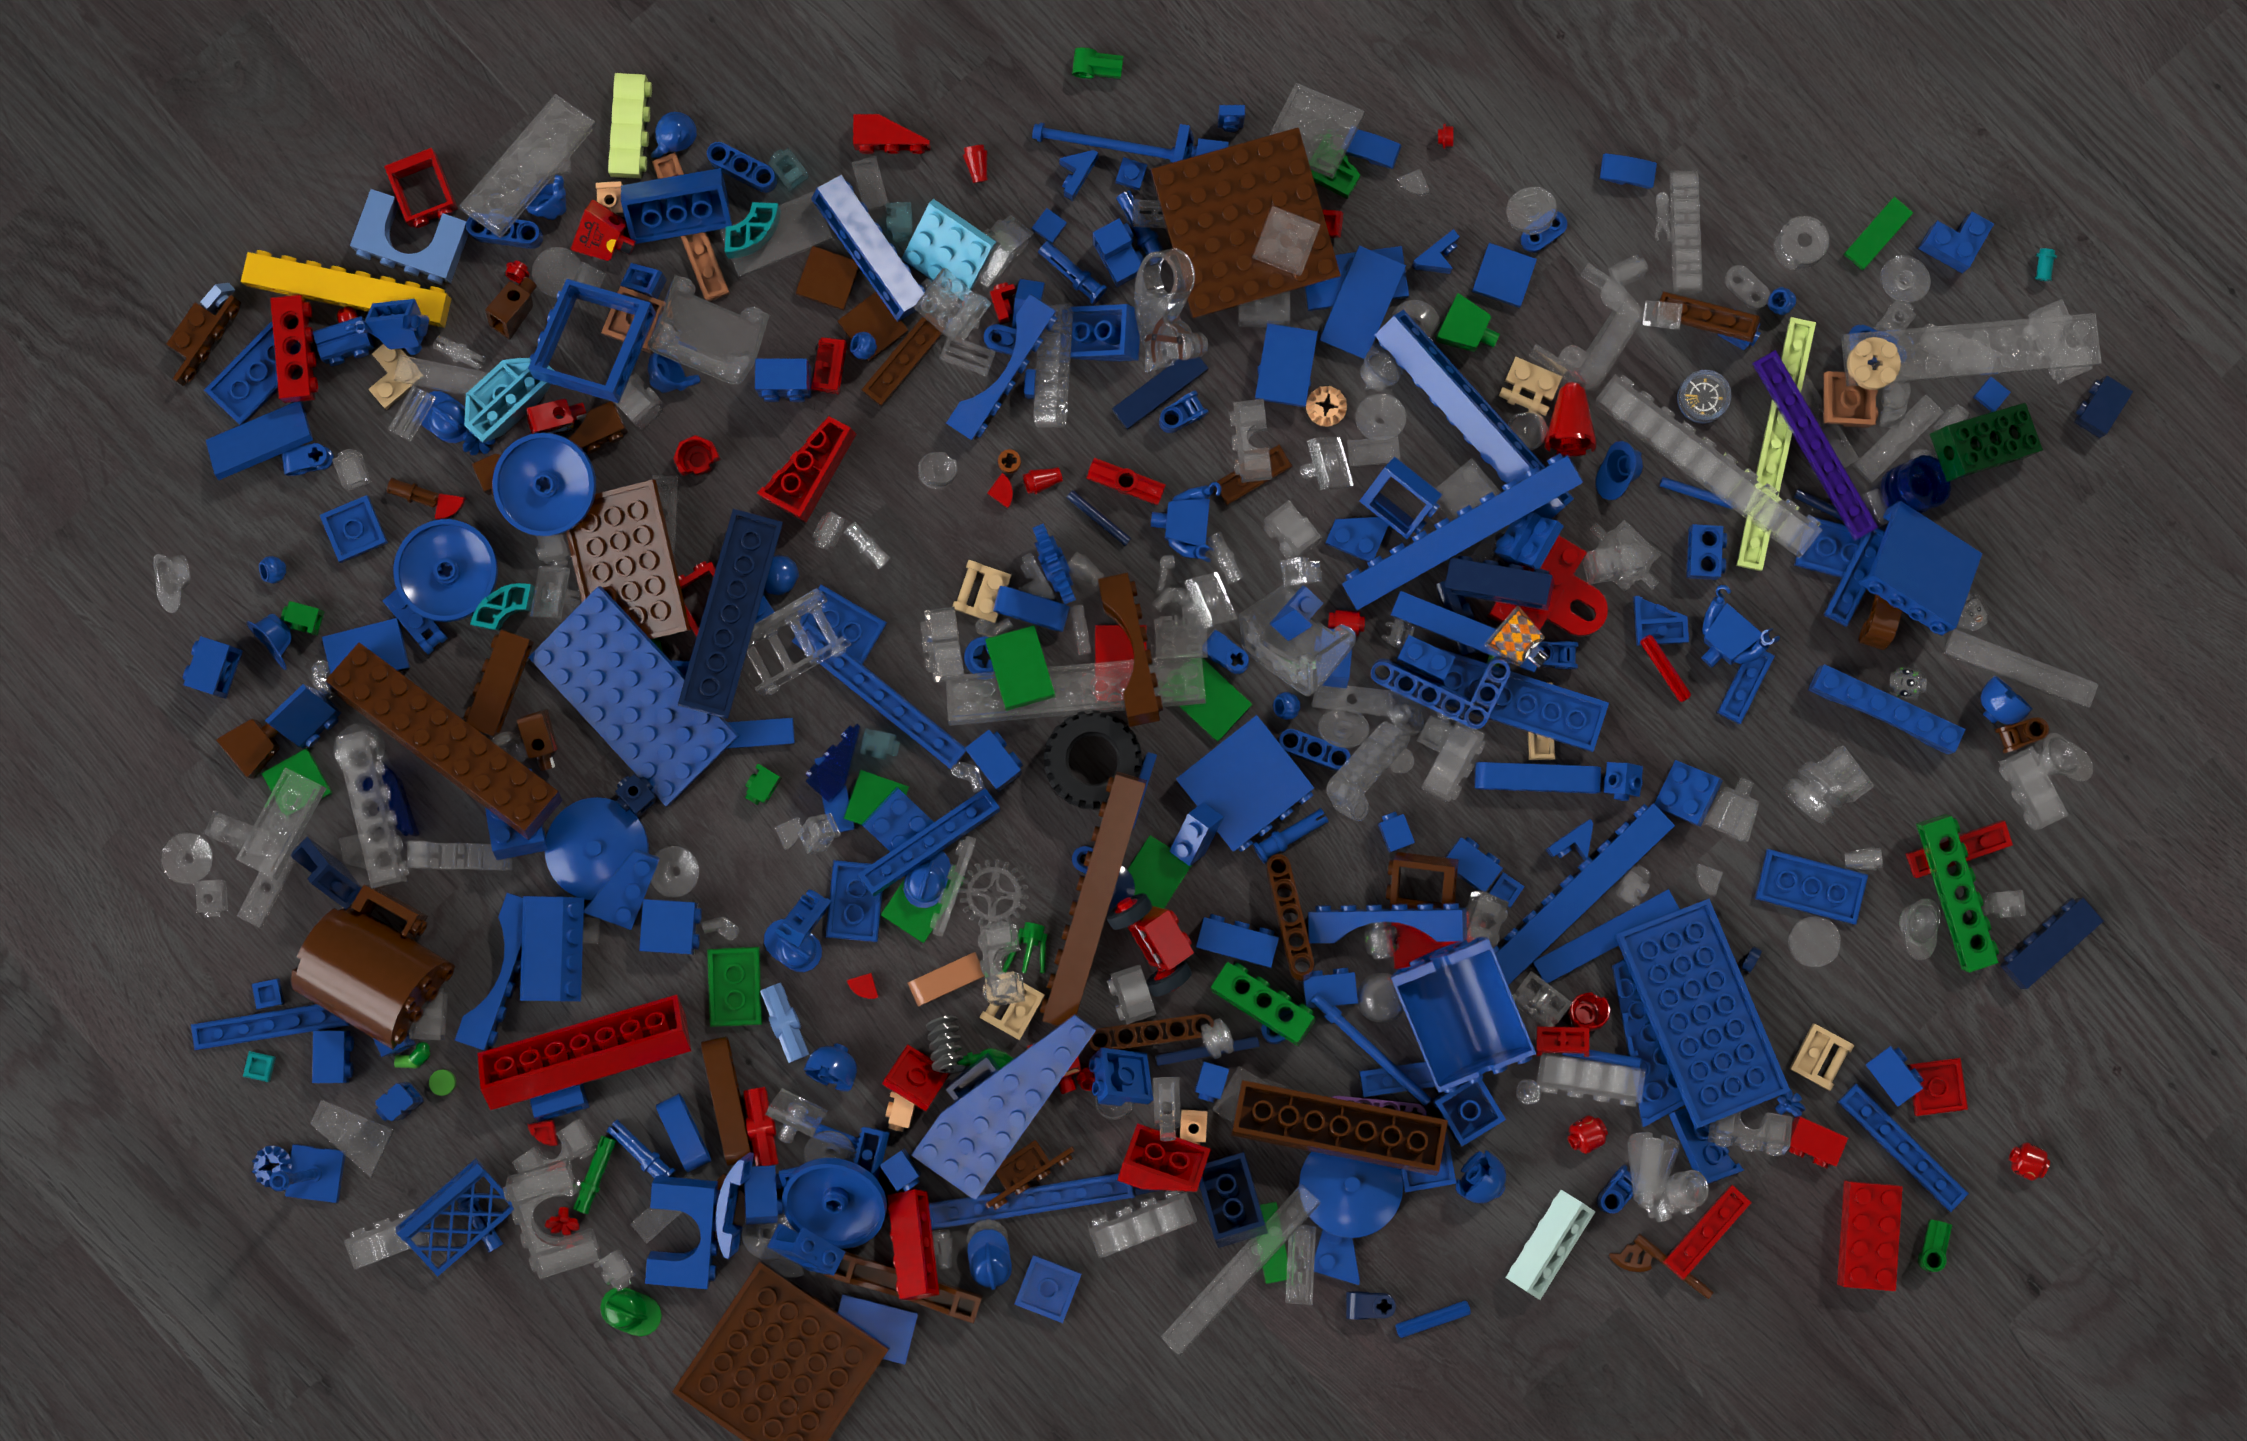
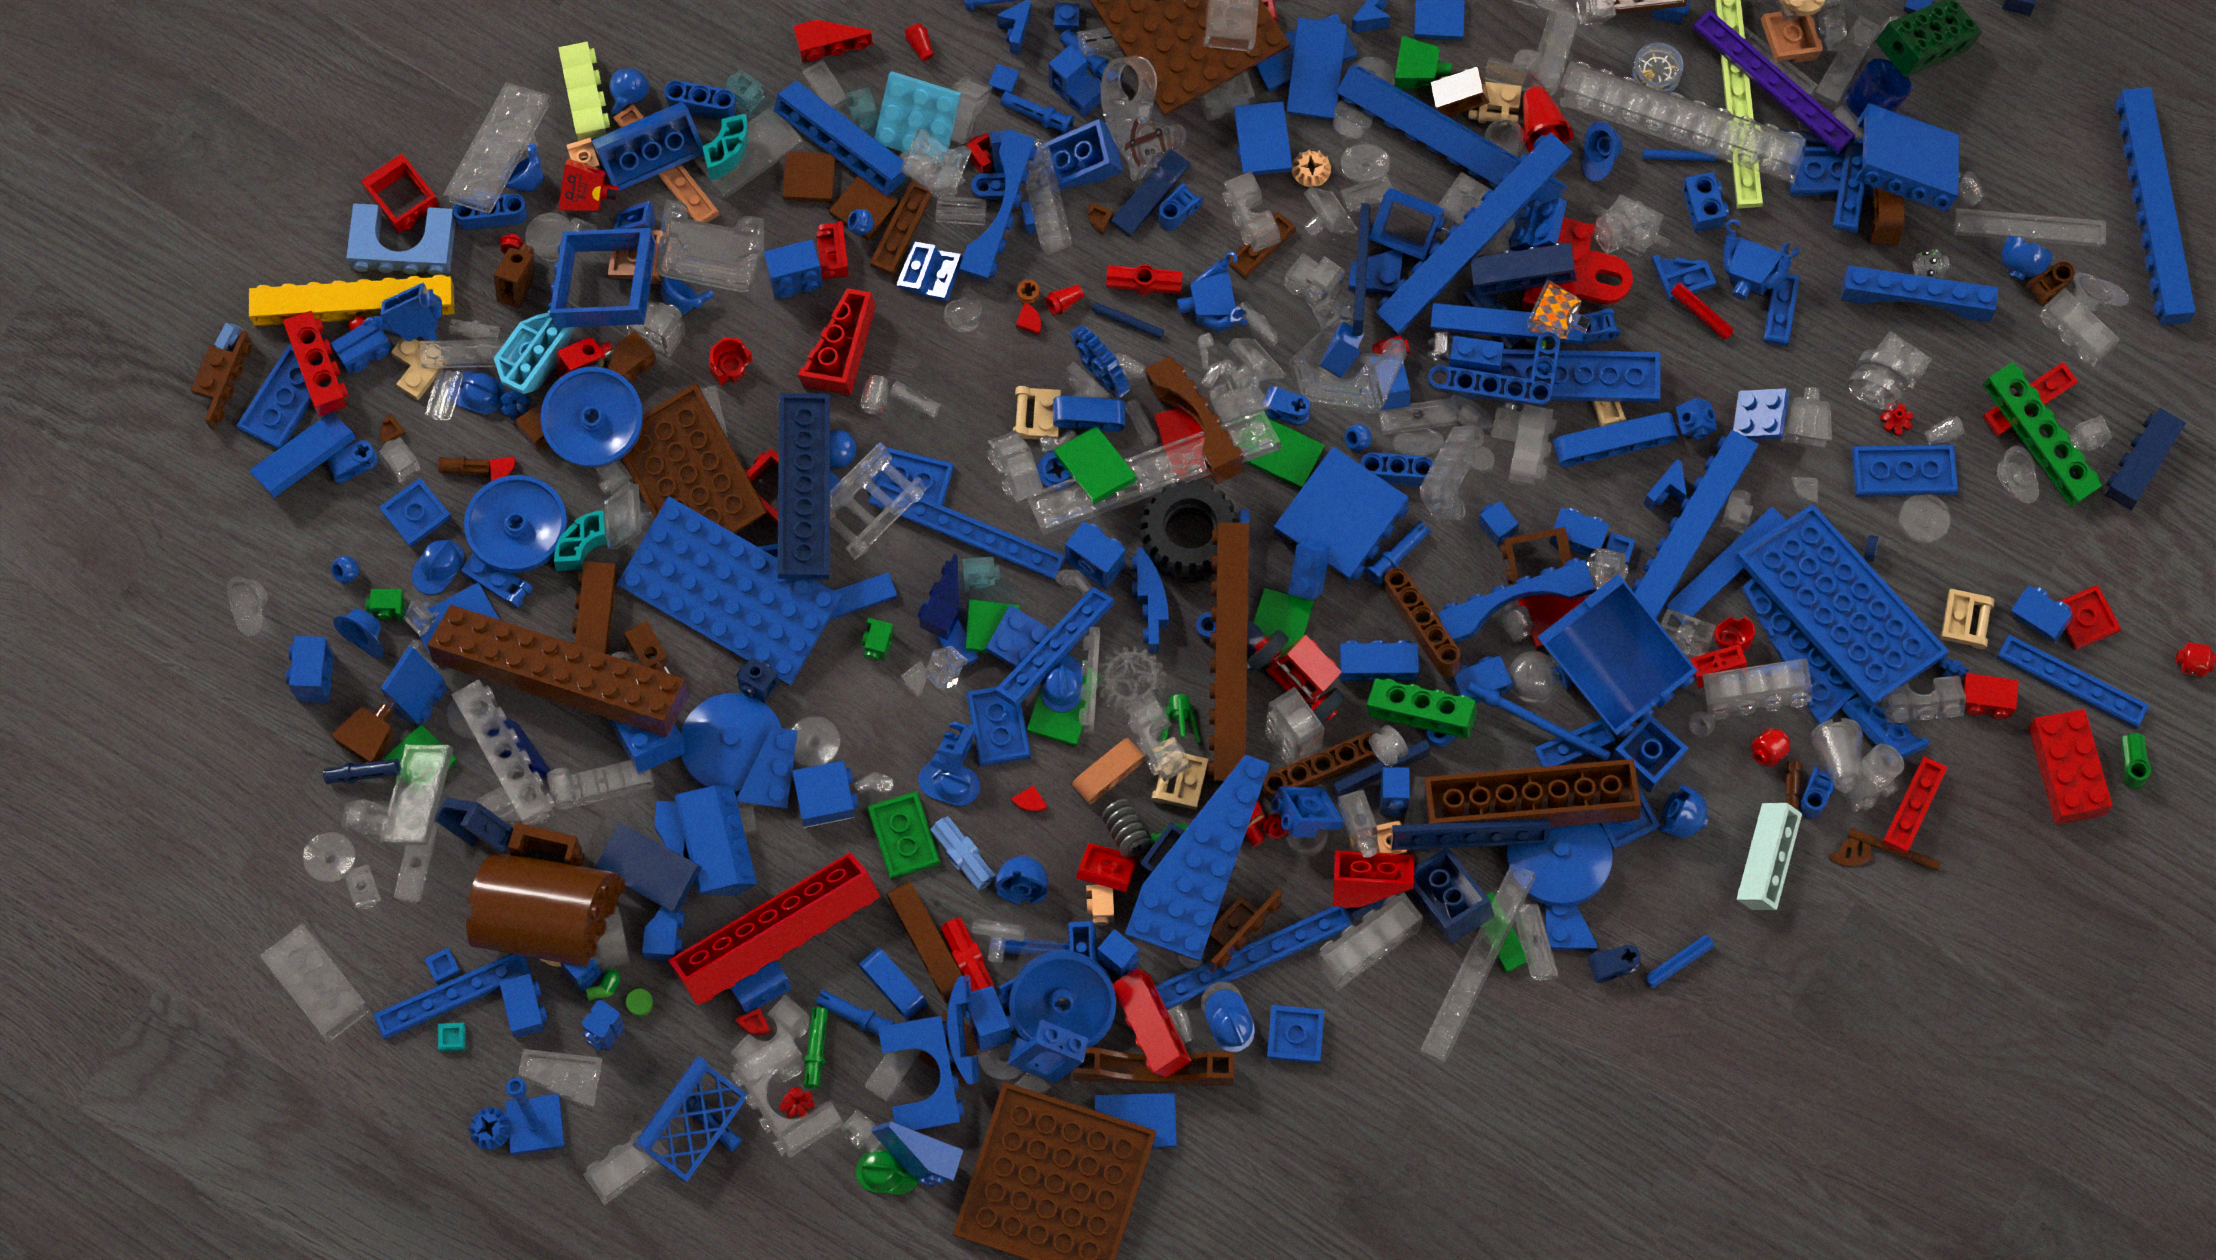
camera: 15 degrees left, 15 degrees down
(142, 980) = (315, 983): none -> clear brick
(228, 780) = (352, 772): none -> dark blue pin
(329, 642) = (420, 617): none -> clear tile
(352, 435) = (390, 429): none -> reddish brown tile
(363, 588) = (437, 566): none -> blue piece
(481, 957) = (649, 867): none -> dark blue tile
(670, 1320) = (919, 1154): none -> blue slope
(919, 413) = (930, 271): none -> slope
(1037, 805) = (1153, 597): none -> blue slope
(1102, 400) = (1099, 217): none -> reddish brown tile
(1268, 1149) = (1470, 834): none -> dark blue tile
(1340, 535) = (1361, 269): none -> dark blue tile
(1497, 369) = (1460, 92): none -> brick
(1597, 1176) = (1793, 783): none -> reddish brown axle
(1817, 834) = (1897, 420): none -> red plant
(2153, 680) = (2155, 206): none -> blue brick

